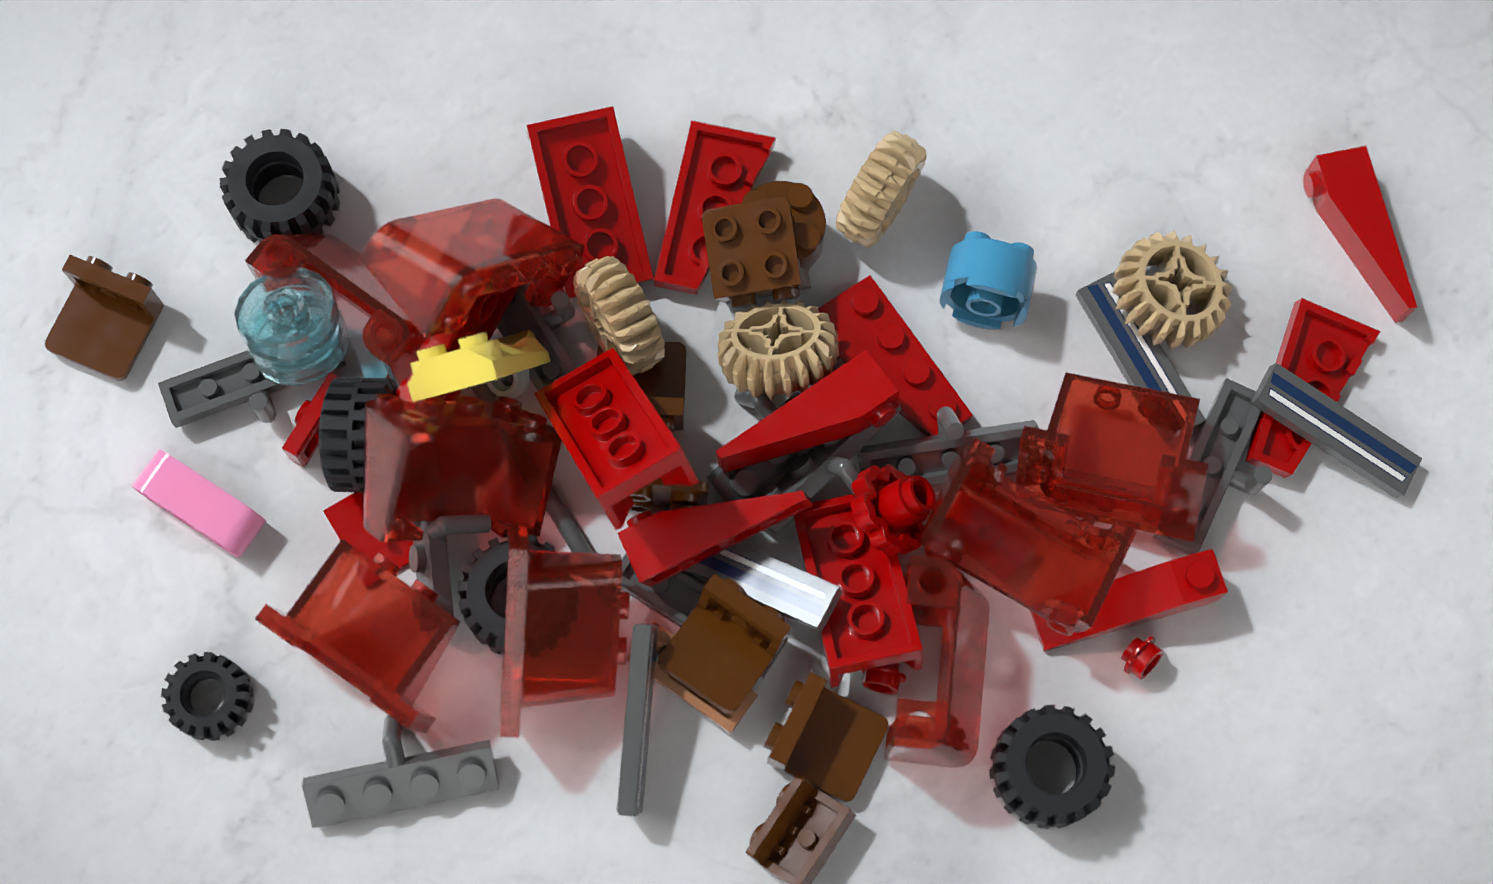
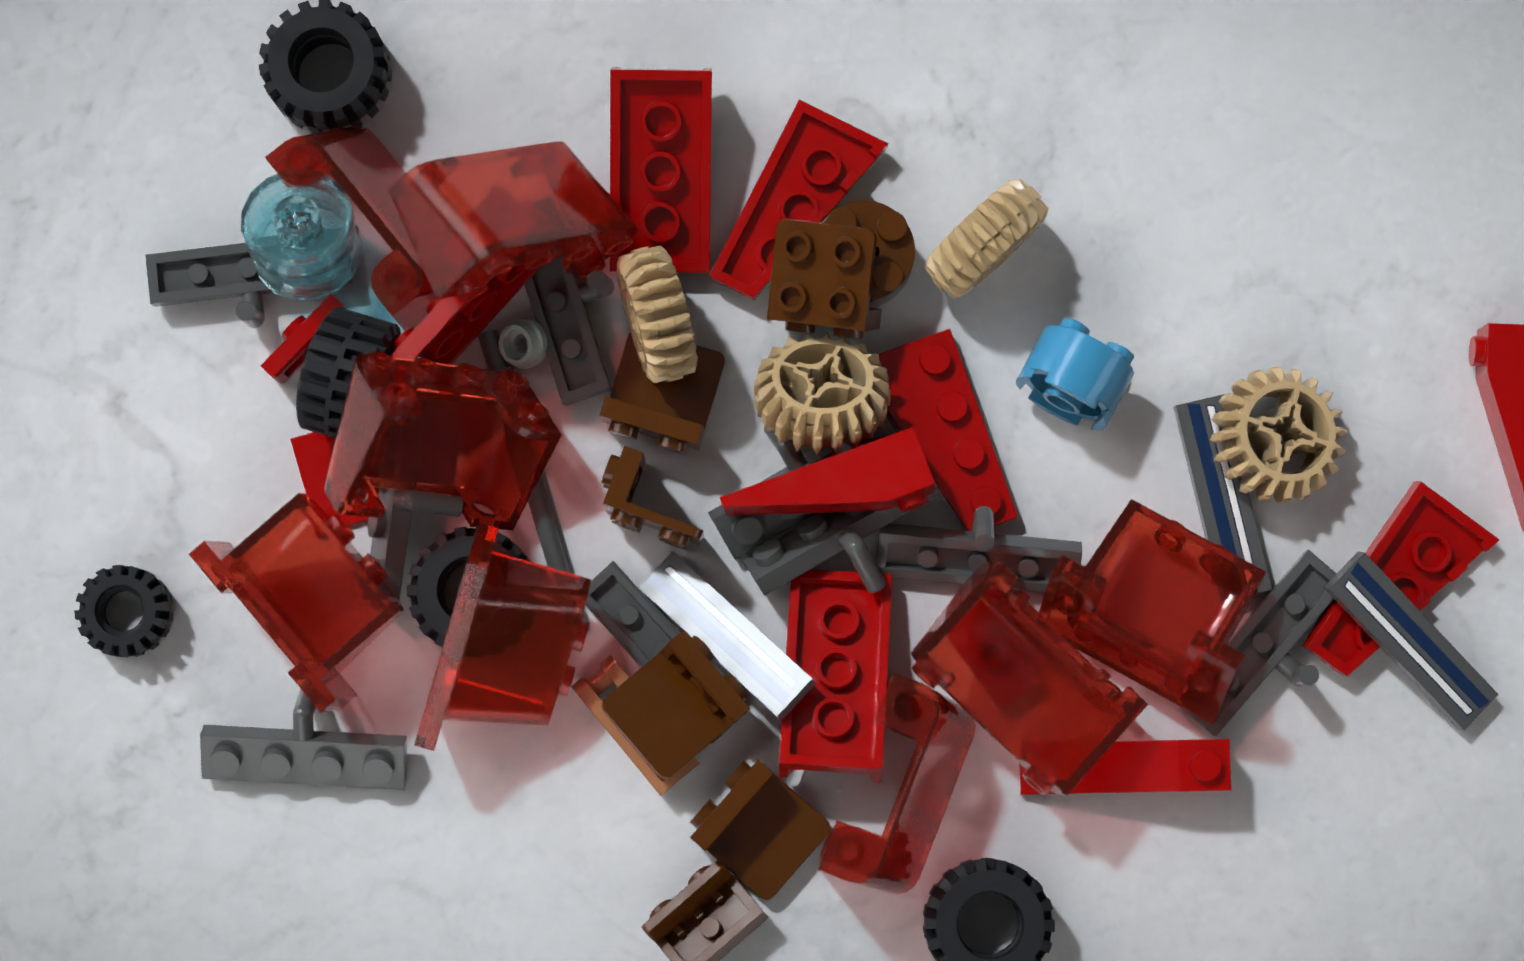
camera: 20 degrees right, 10 degrees up
(104, 318) = (102, 166): reddish brown bracket -> none
(199, 503) = (160, 400): bright pink beam -> none
(473, 363) = (488, 342): light yellow slope -> none
(613, 433) = (610, 454): red plate -> none
(637, 719) = (565, 757): dark grey tile -> none
(680, 538) = (653, 578): red slope -> none
(883, 679) = (839, 783): red plate -> none
(892, 508) = (893, 605): red plant -> none
(1141, 657) = (1121, 830): red plate -> none

